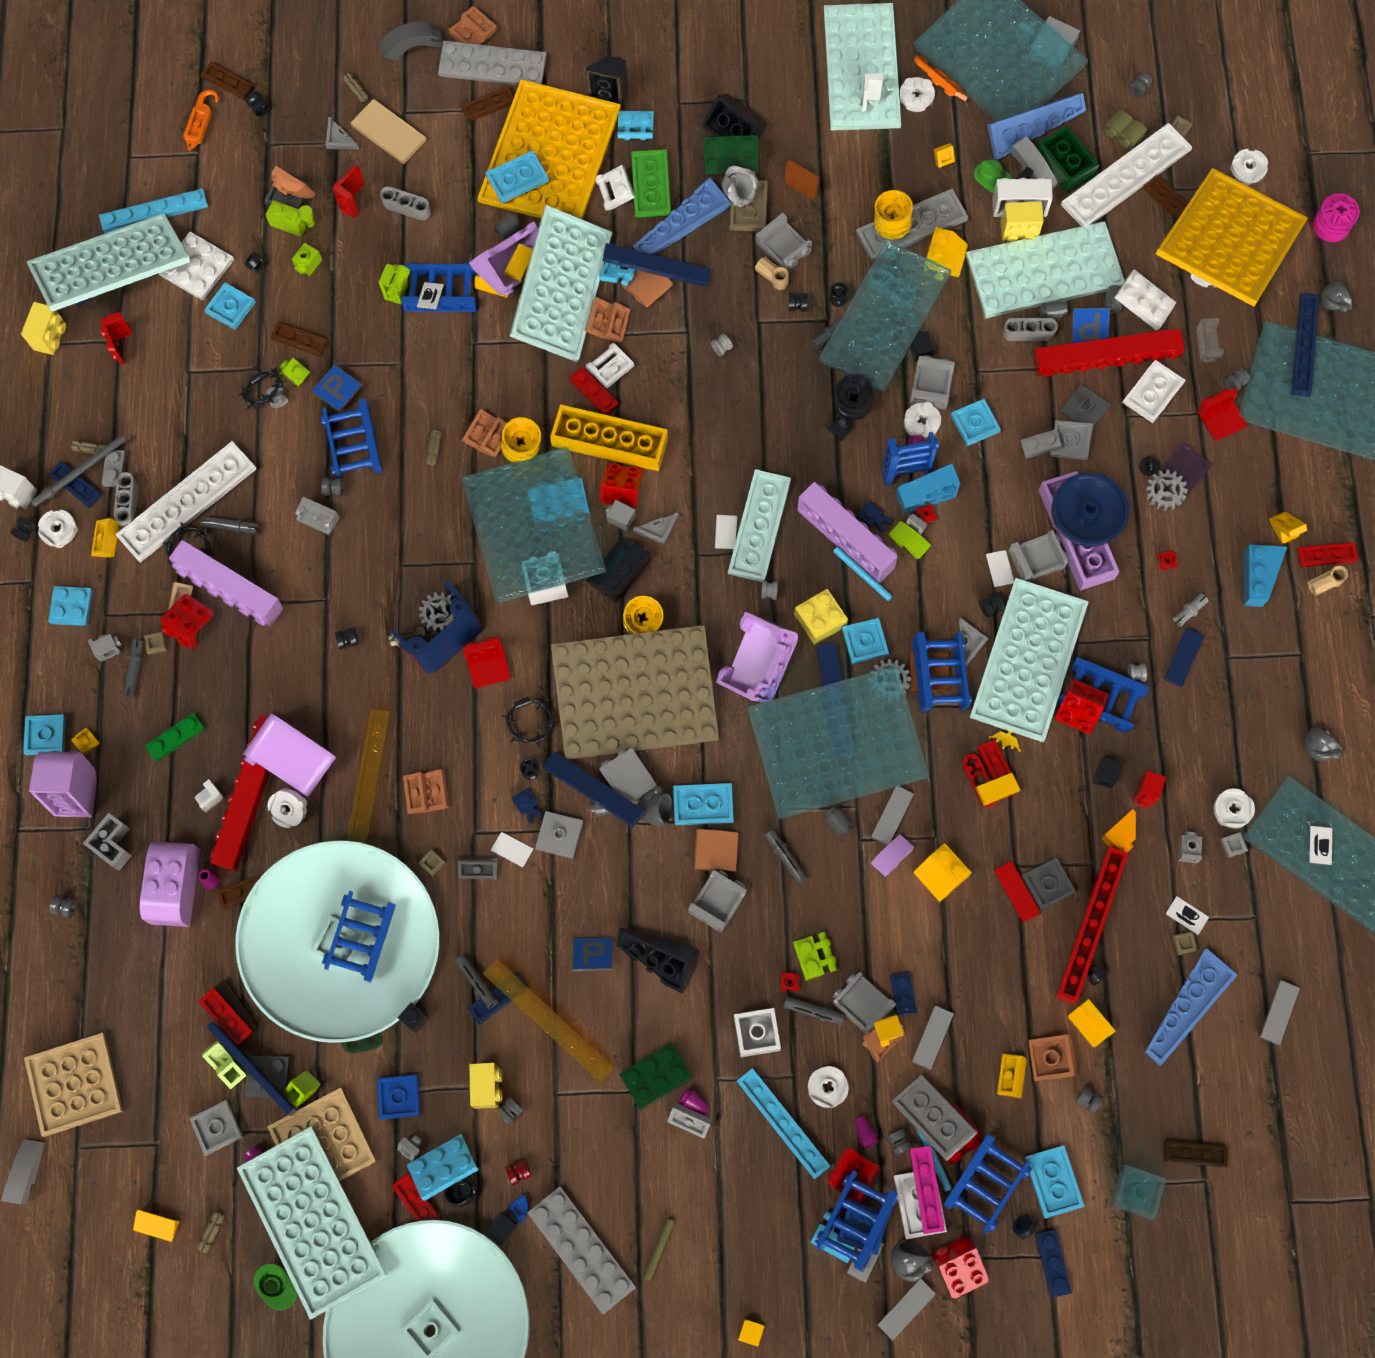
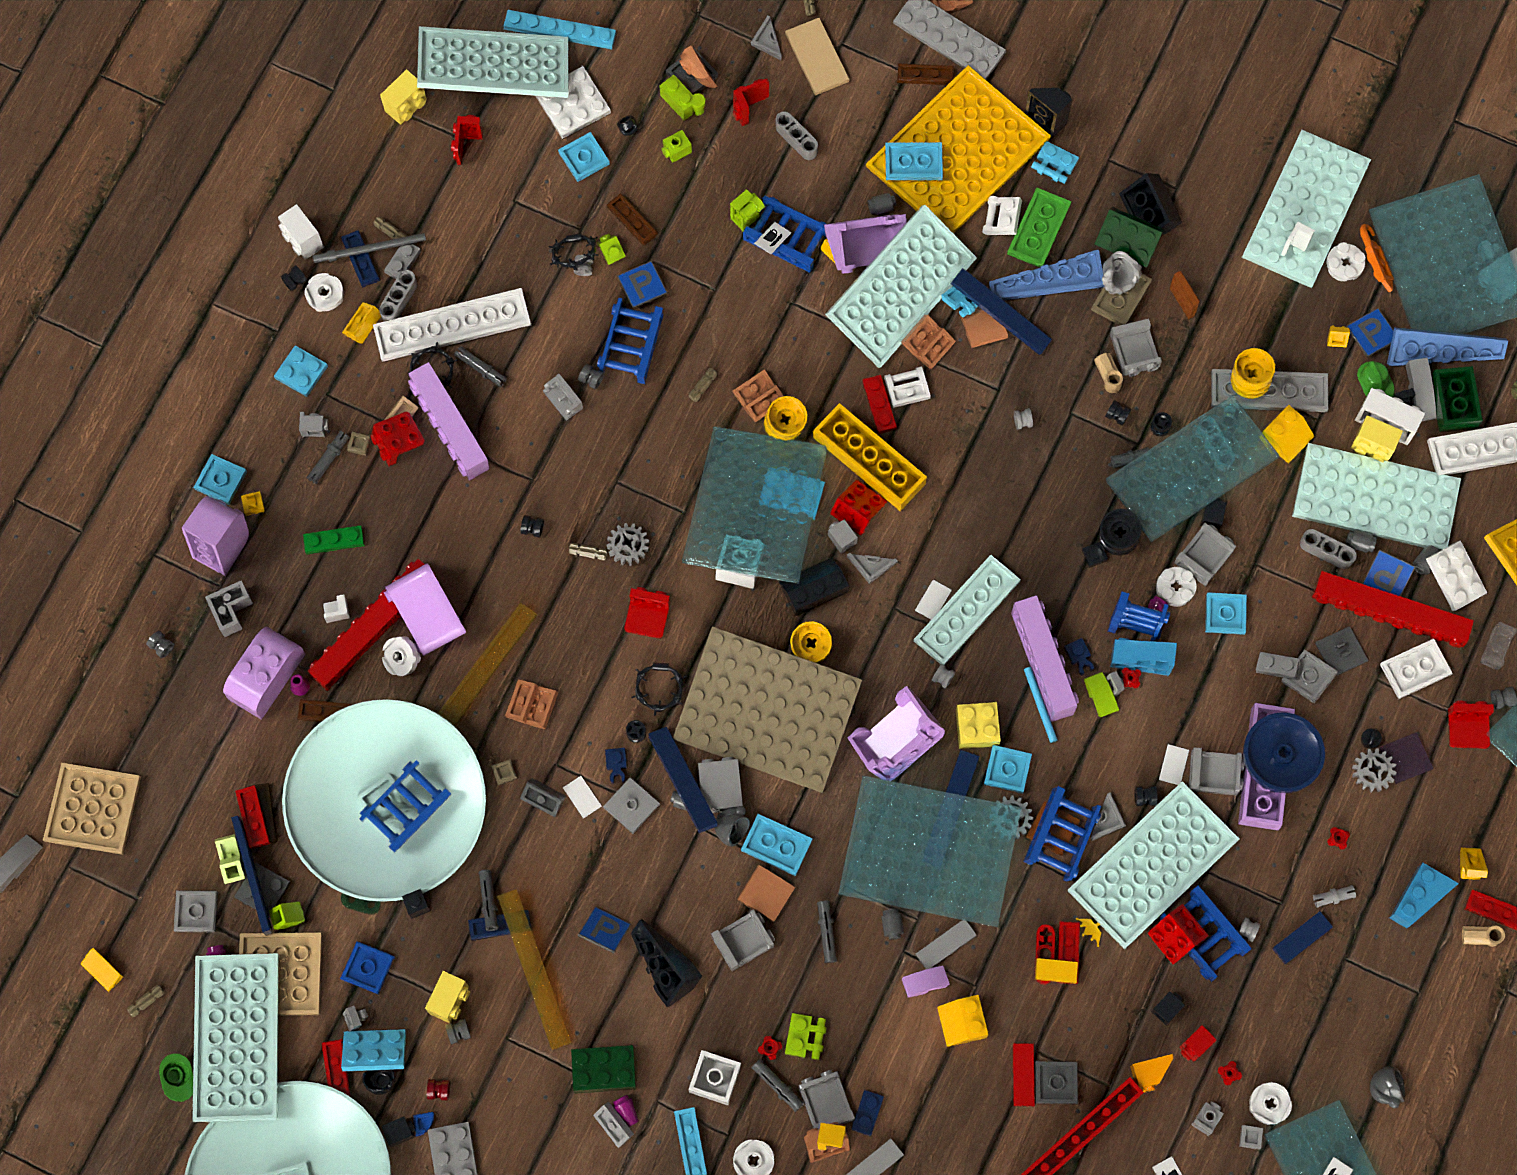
camera: 25 degrees right, 0 degrees up
(449, 641) = (622, 575): dark blue windscreen -> none
(519, 263) = (872, 246): yellow tile -> none
(969, 138) = (1371, 332): none -> blue piece
(1188, 807) = (1228, 1079): none -> red plate

